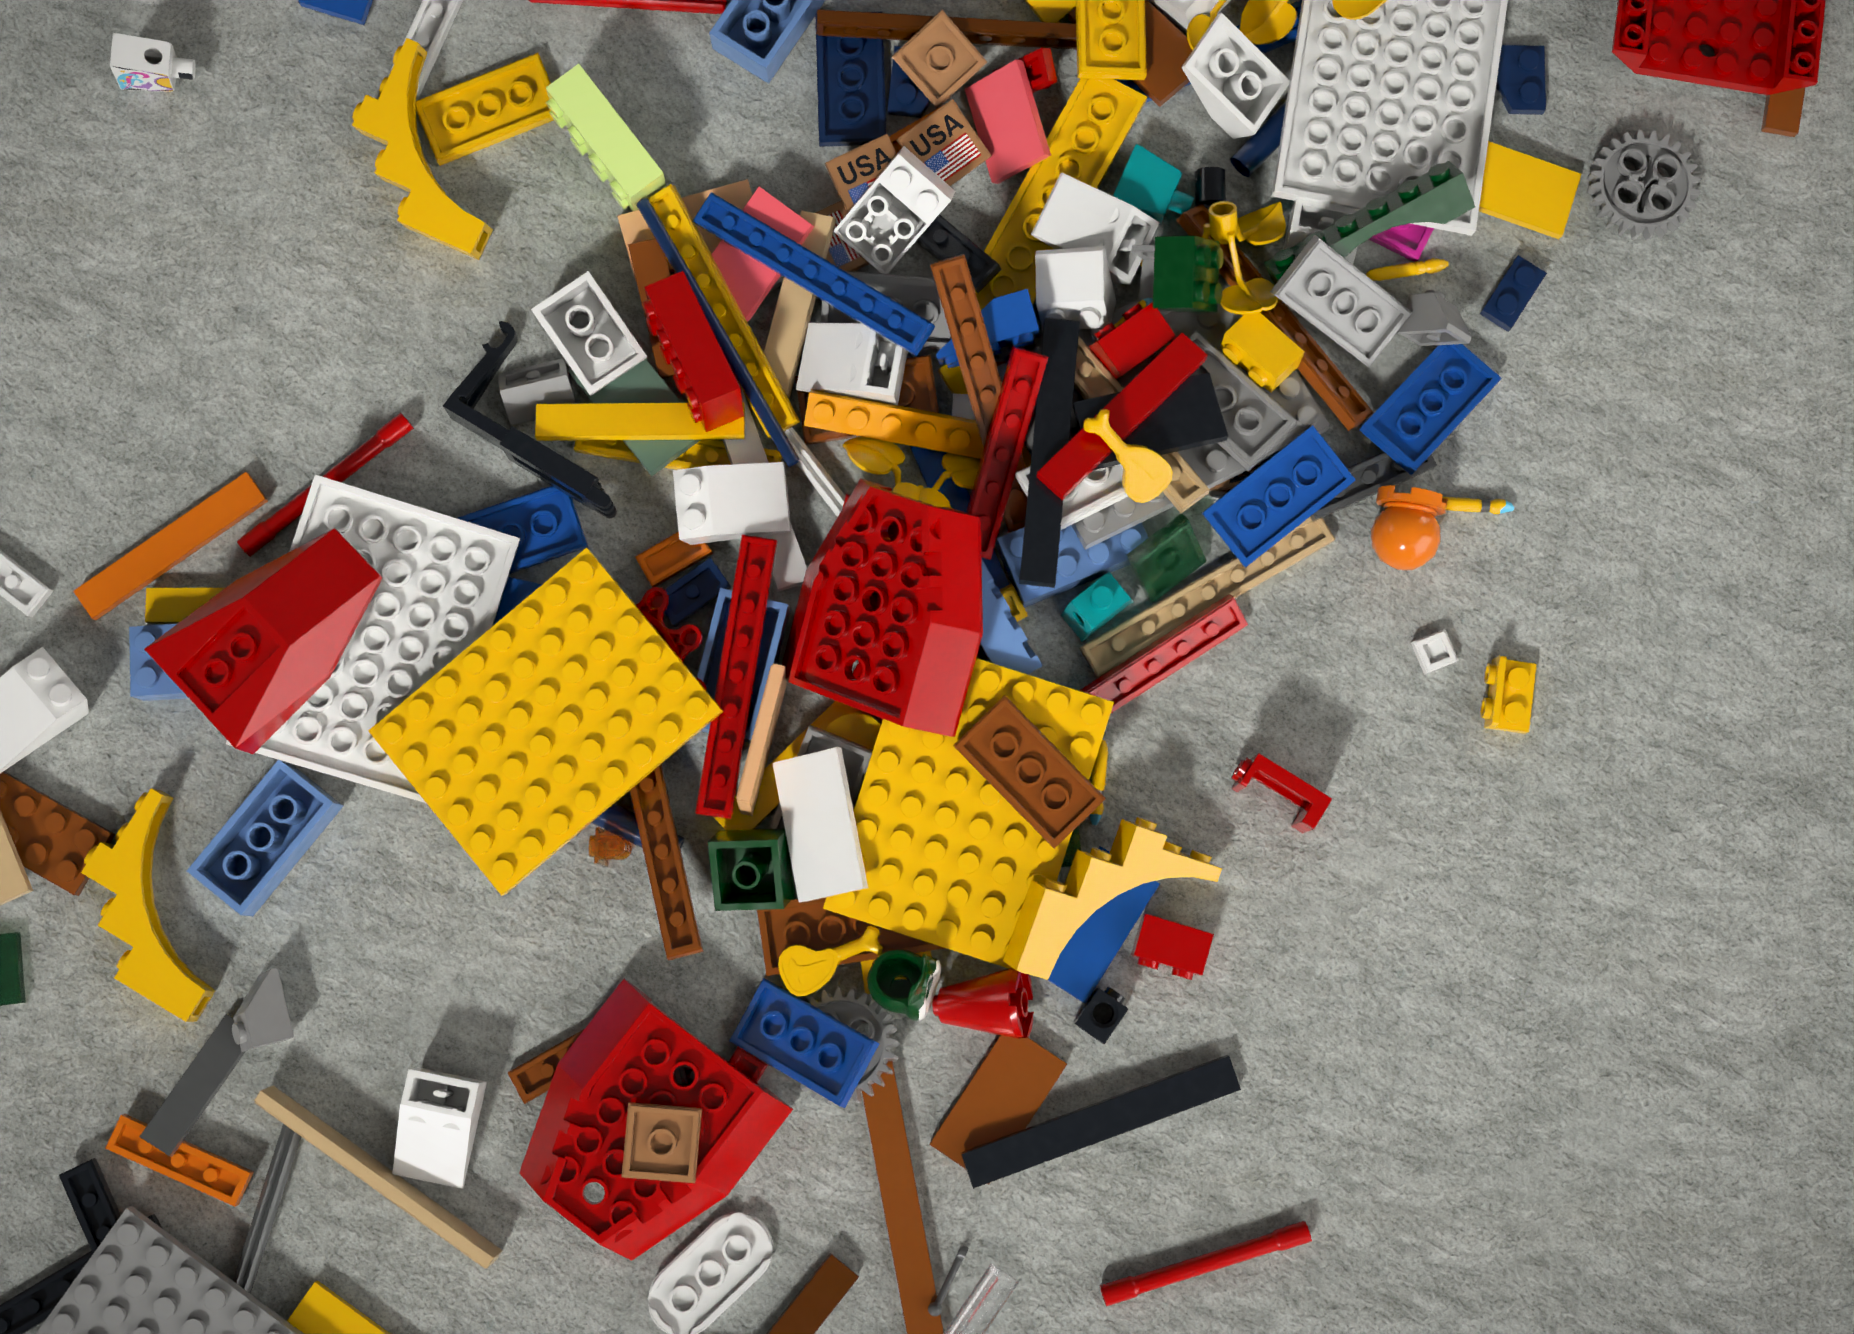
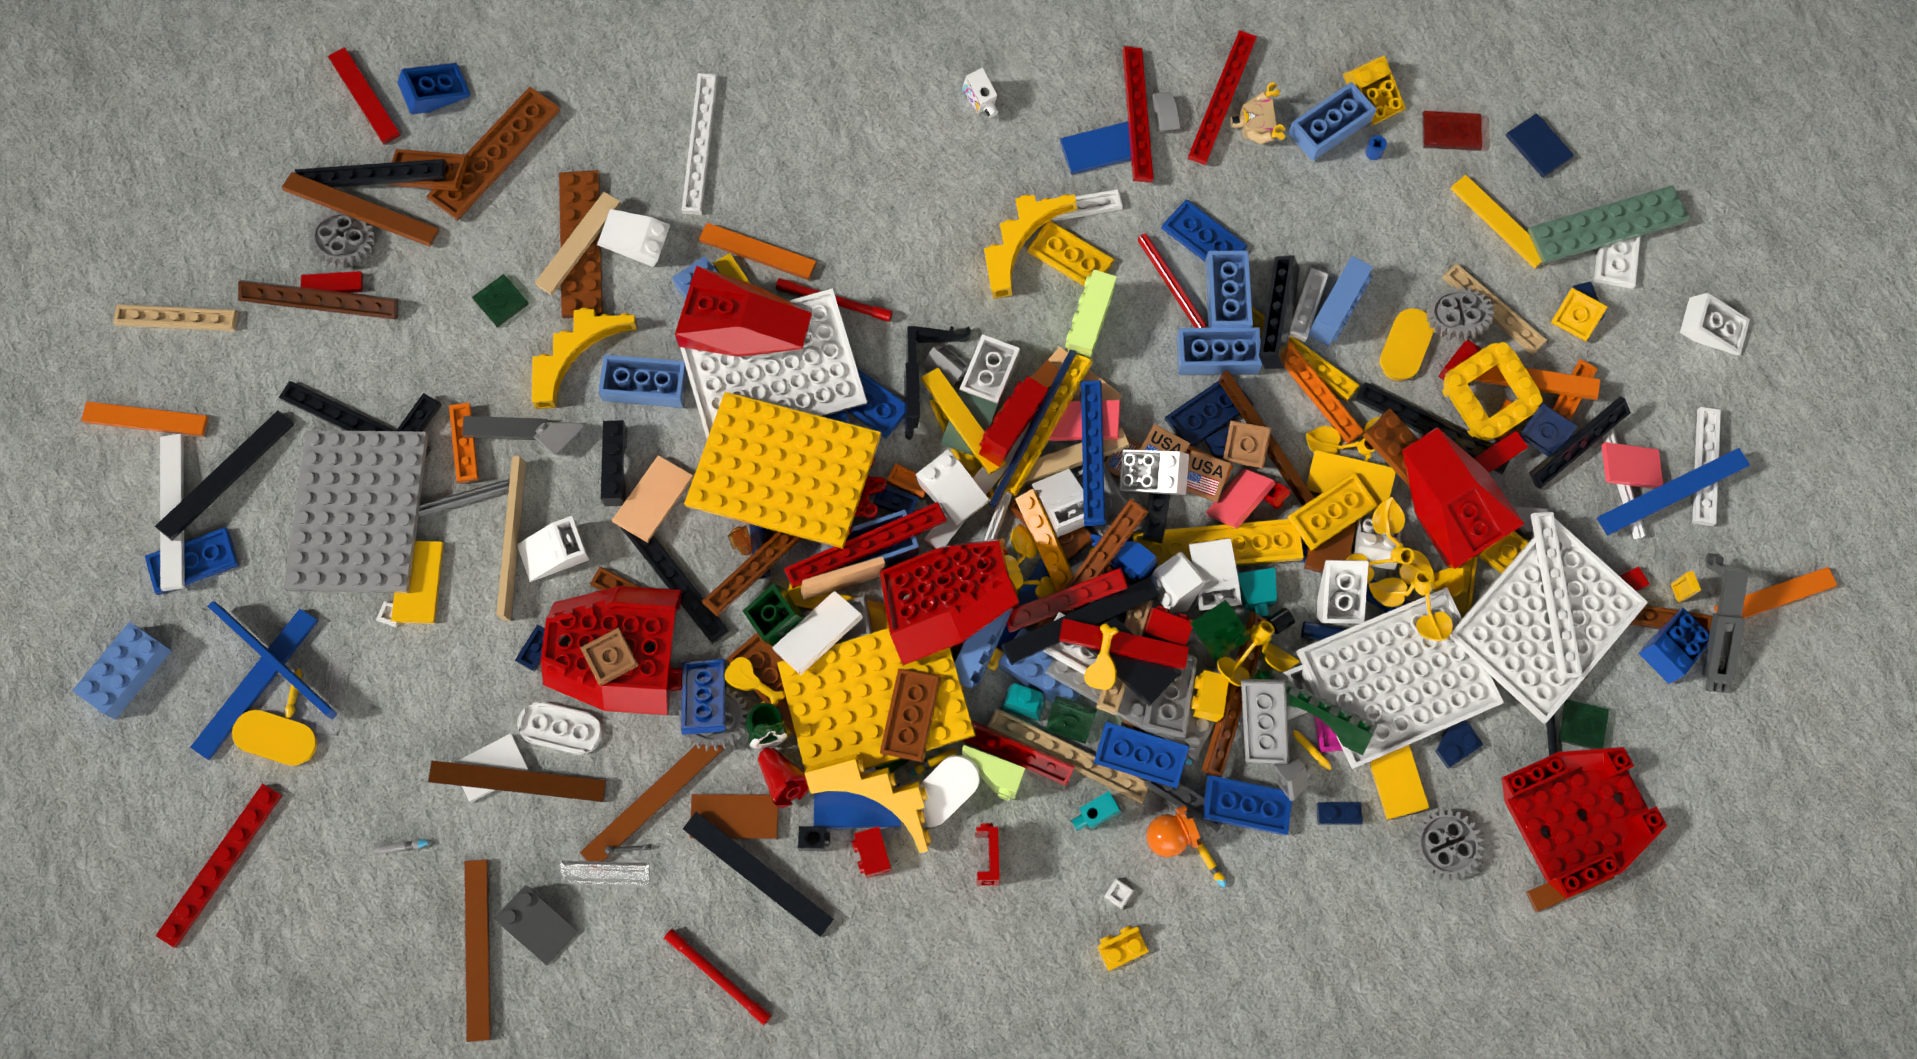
camera: 55 degrees right, 10 degrees down
(363, 959) = (612, 470): none -> black arch
(456, 935) = (652, 498): none -> light nougat tile
(571, 1245) = (531, 652): none -> dark blue plate
(582, 978) = (675, 579): none -> black tile
(1157, 782) = (949, 788): none -> white tile
(1180, 706) = (997, 773): none -> yellowish green slope
(1318, 592) = (1106, 808): none -> teal torso

